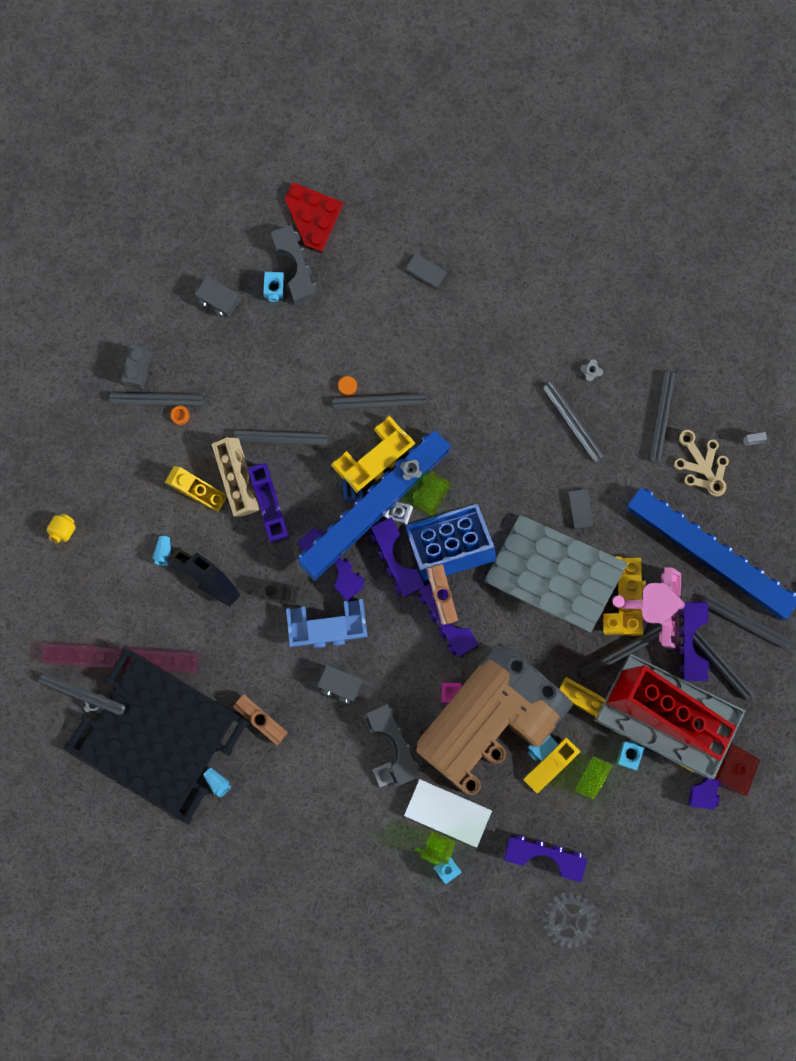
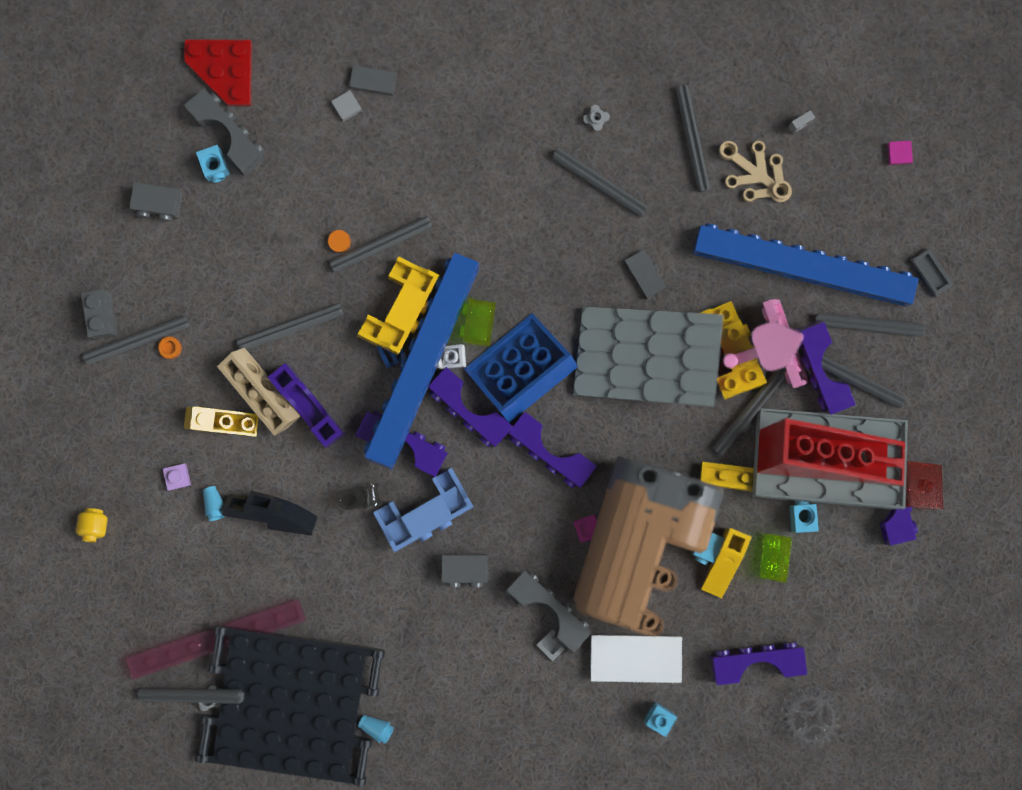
camera: 25 degrees left, 5 degrees up
(143, 518) = (176, 477): none -> lavender plate
(270, 728) = (380, 638): nougat piece -> none
(397, 282) = (346, 105): none -> light grey tile
(414, 464) = (446, 313): light grey plate -> none
(438, 849) = (642, 703): clear neon green bracket -> none
(444, 606) = (544, 439): nougat piece -> none

